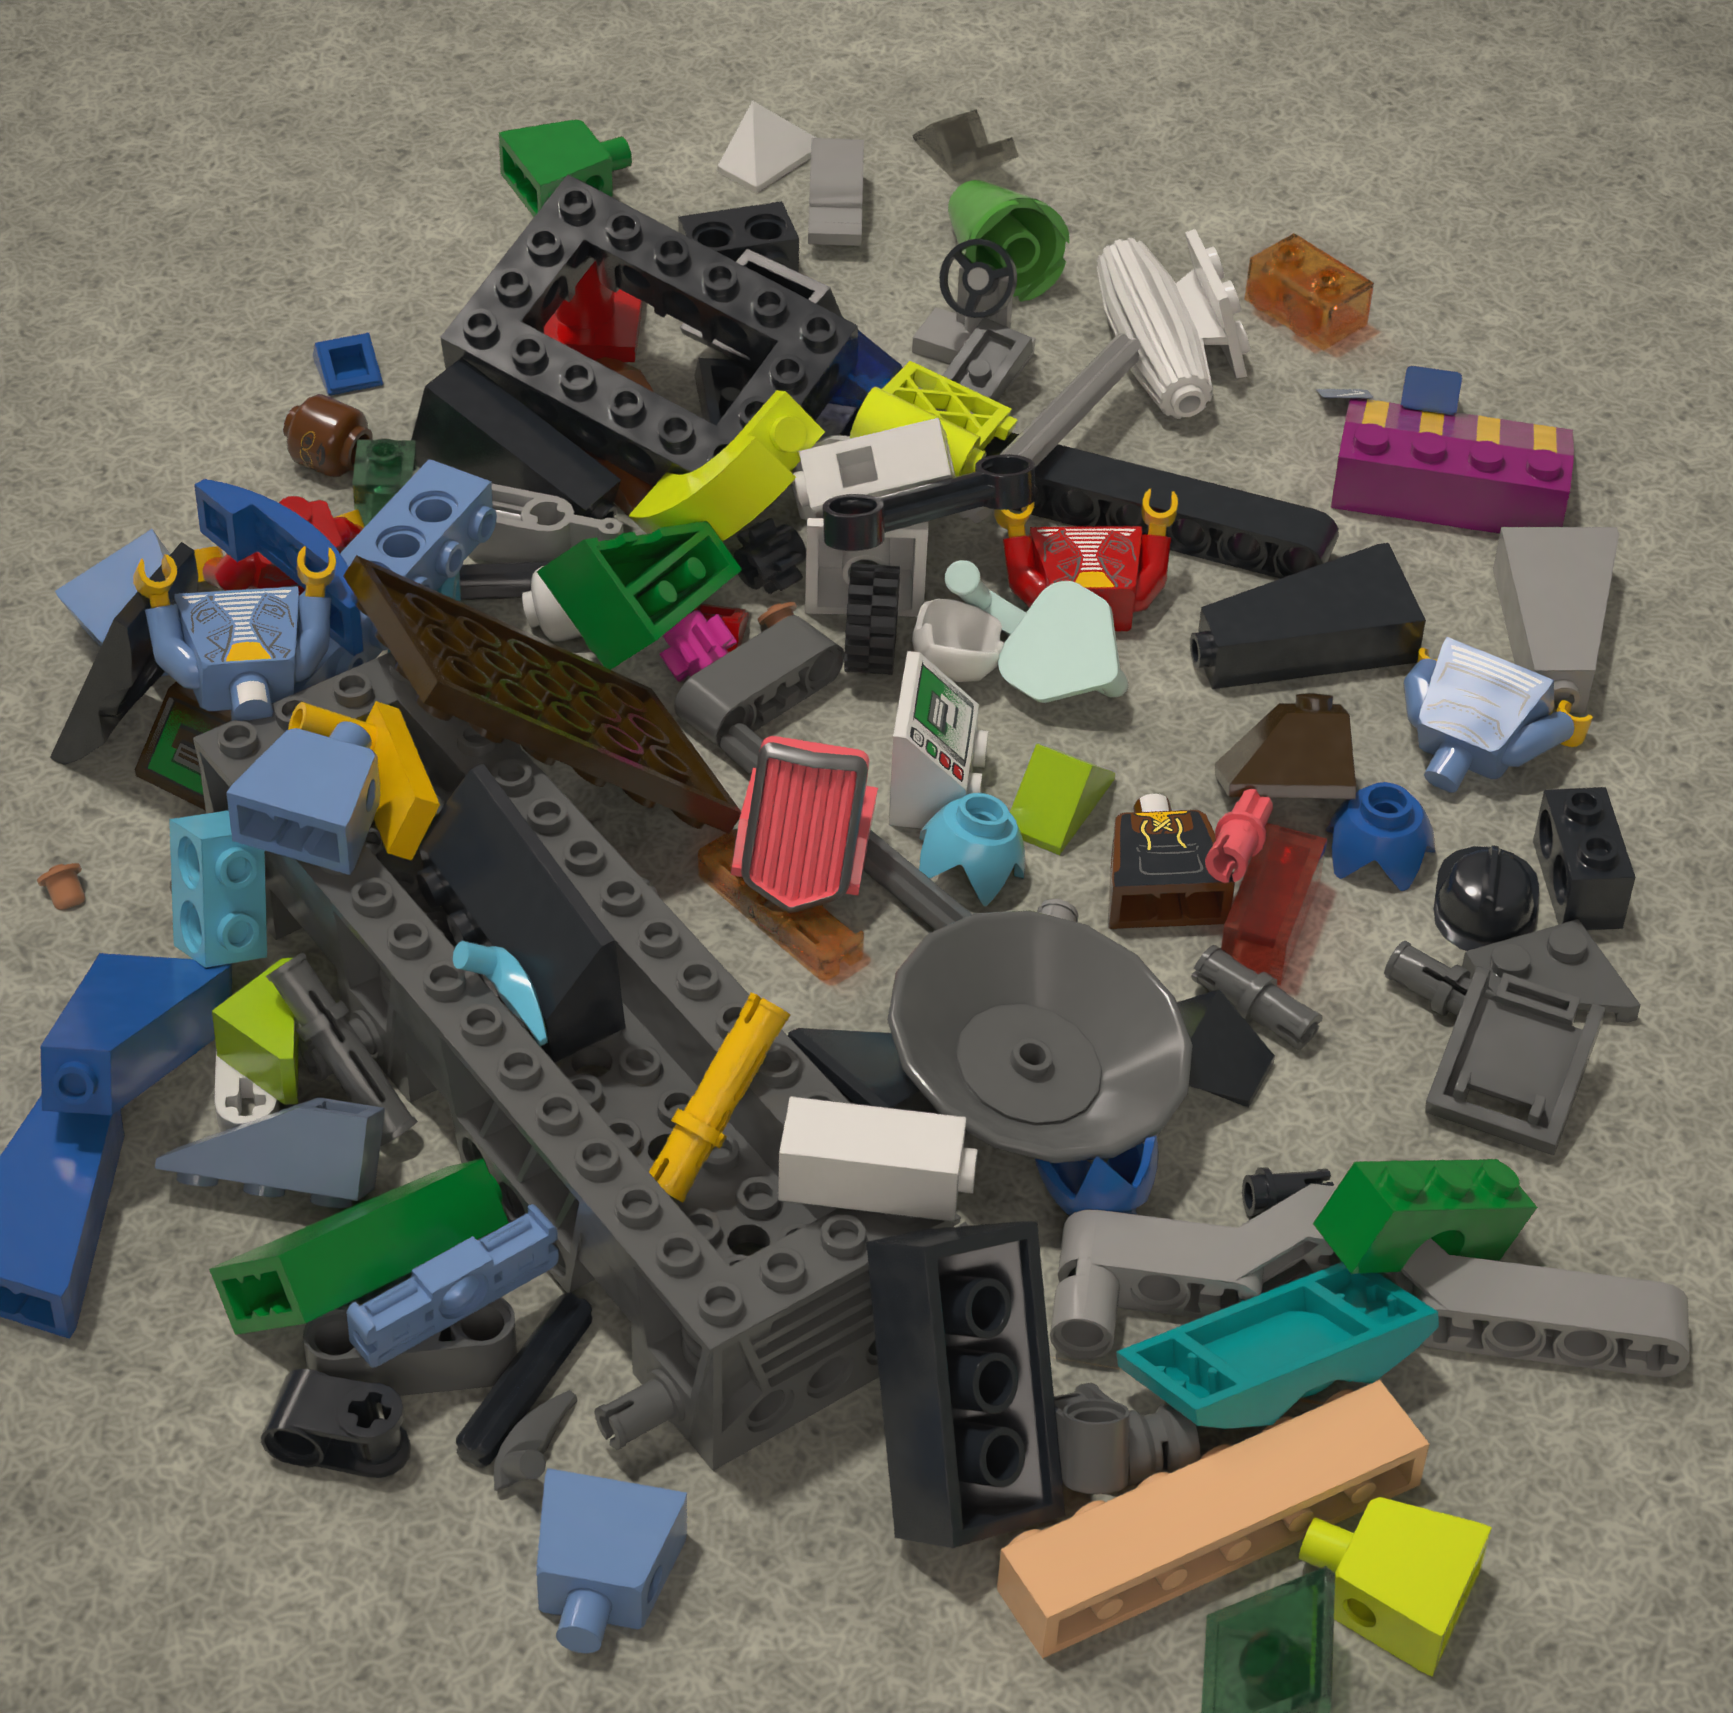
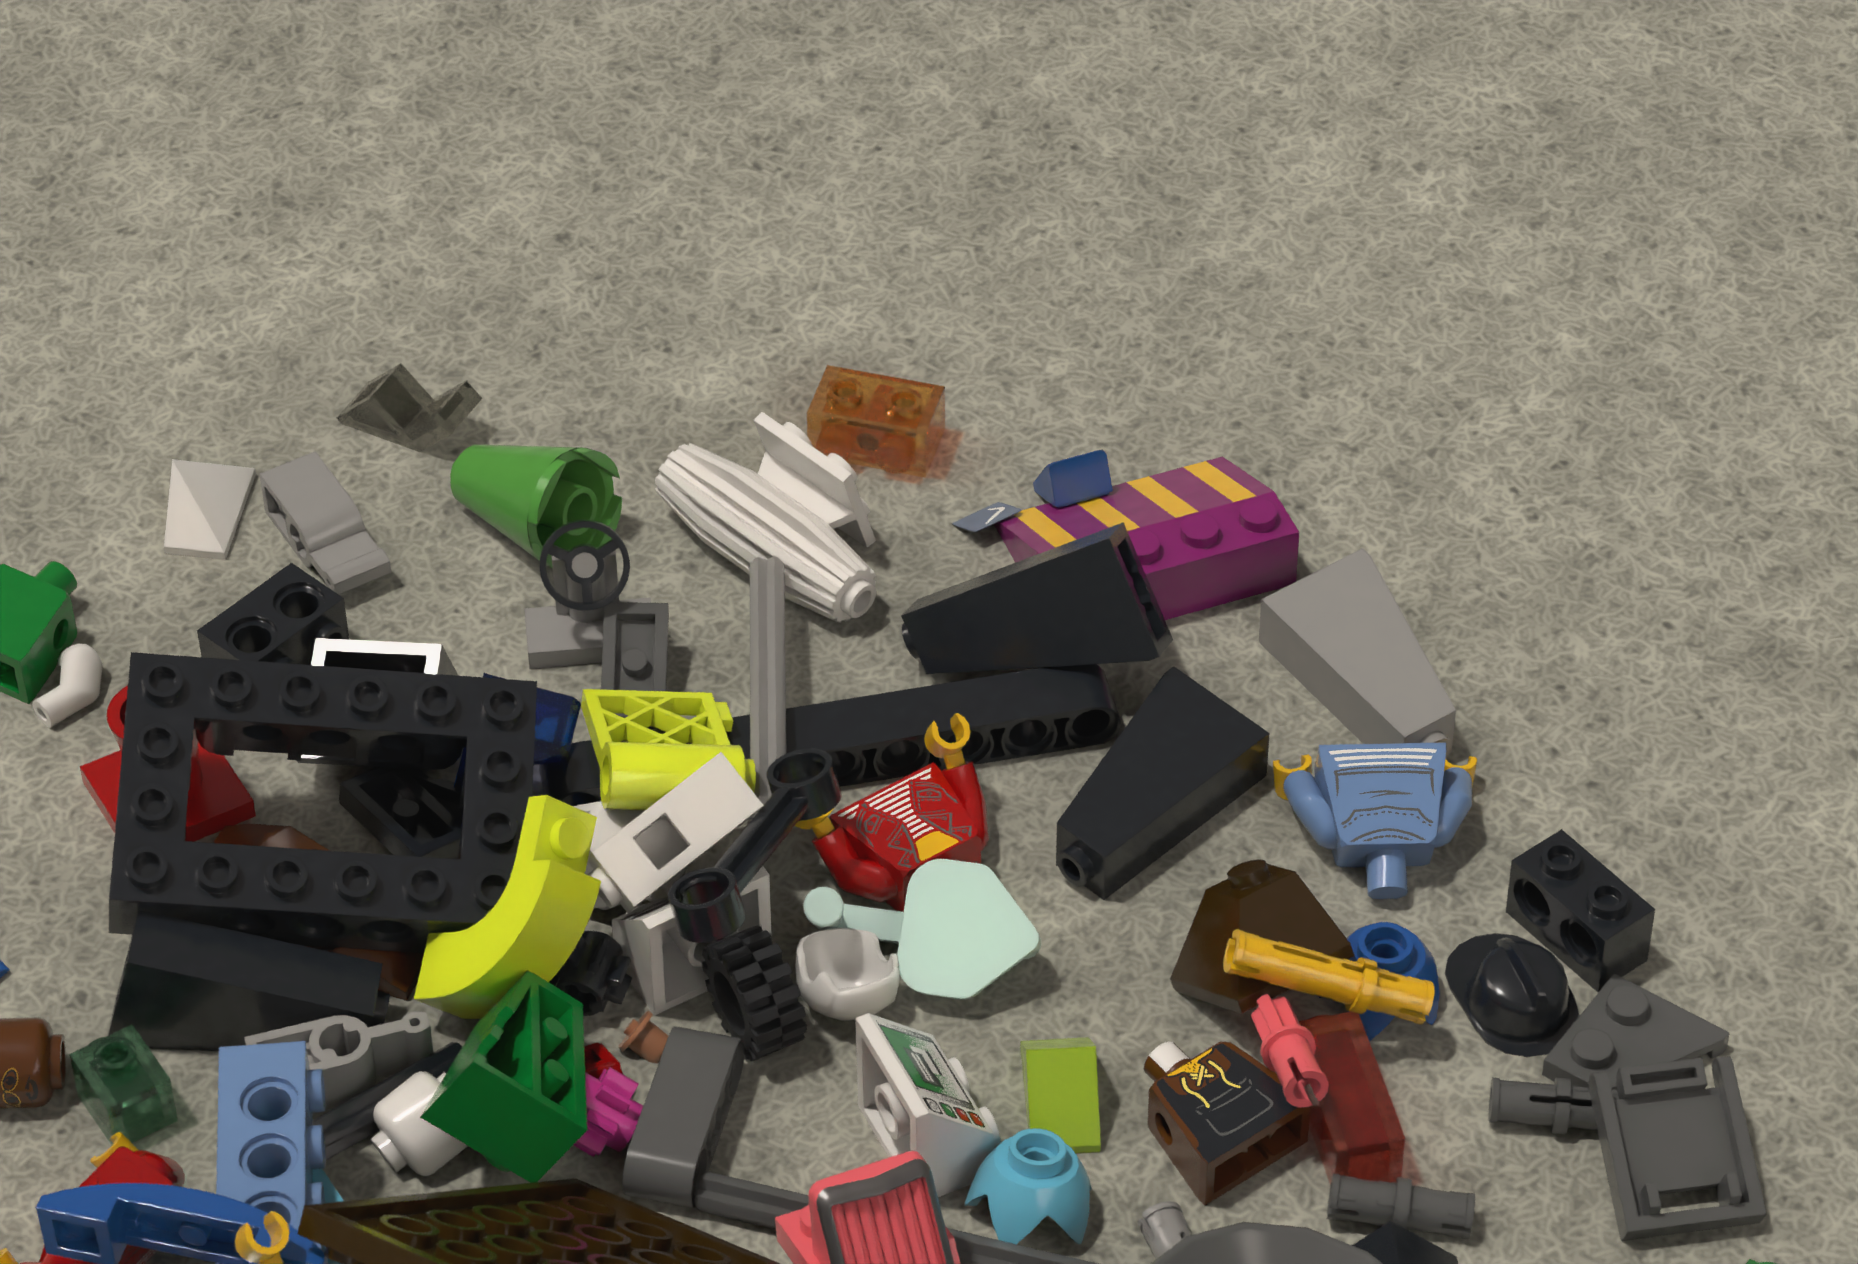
camera: 30 degrees left, 0 degrees up
(1319, 459) = (1049, 610): none -> black slope
(1320, 803) = (1354, 983): none -> yellow pin

